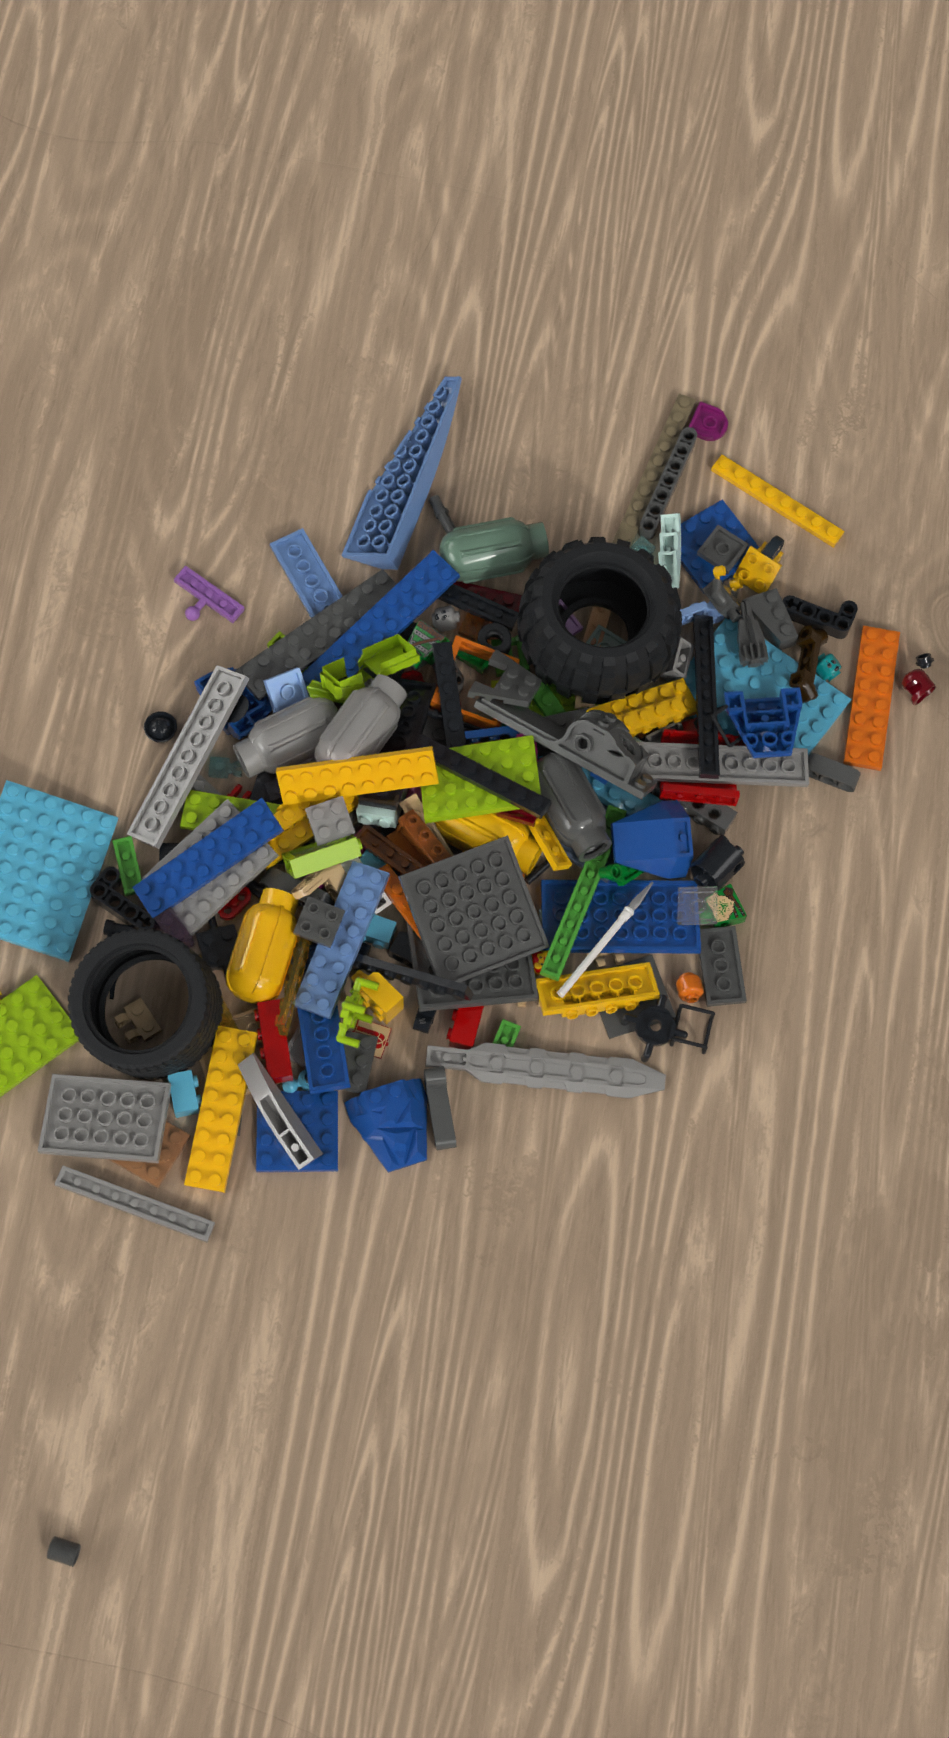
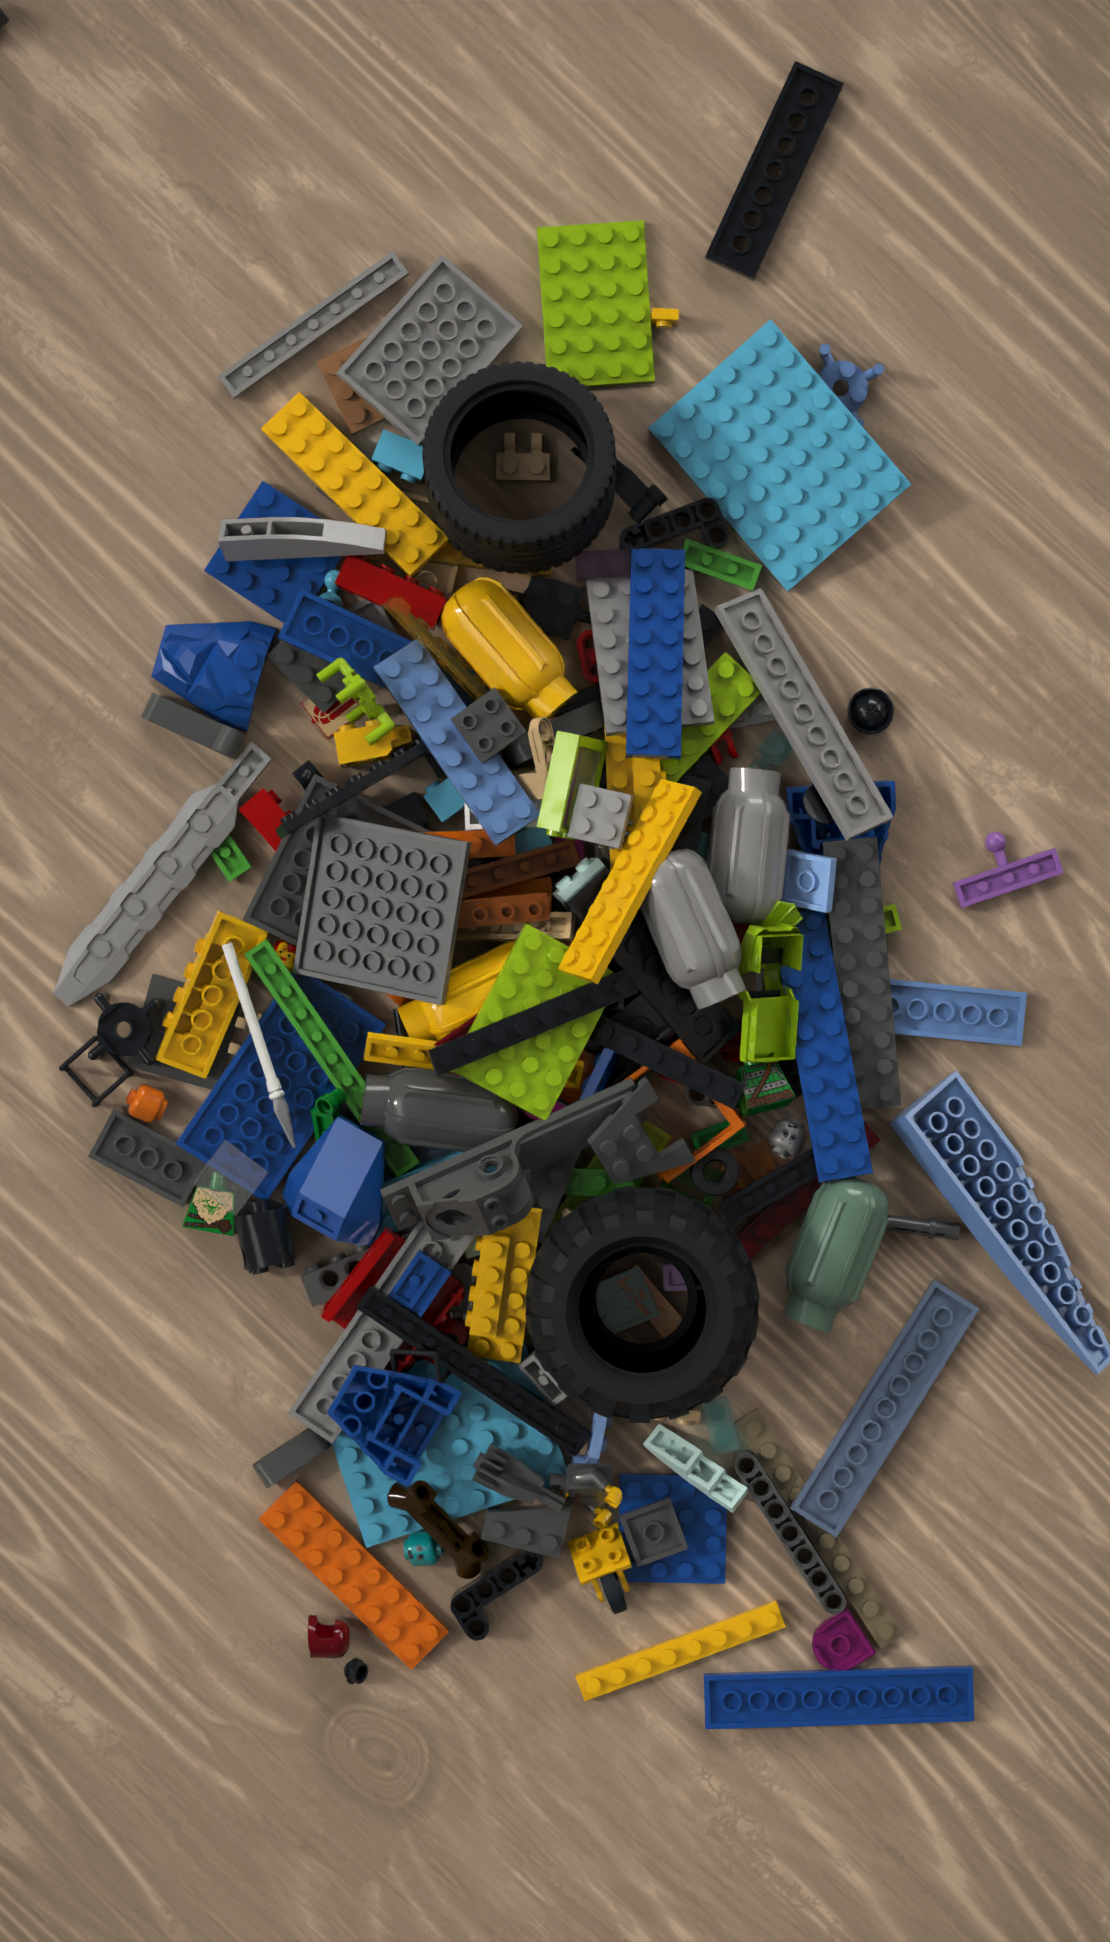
camera: 130 degrees right, 20 degrees up
(561, 475) = (884, 1408): none -> sand blue plate
(678, 752) = (420, 1283): none -> blue plate
(739, 405) = (838, 1697): none -> blue plate

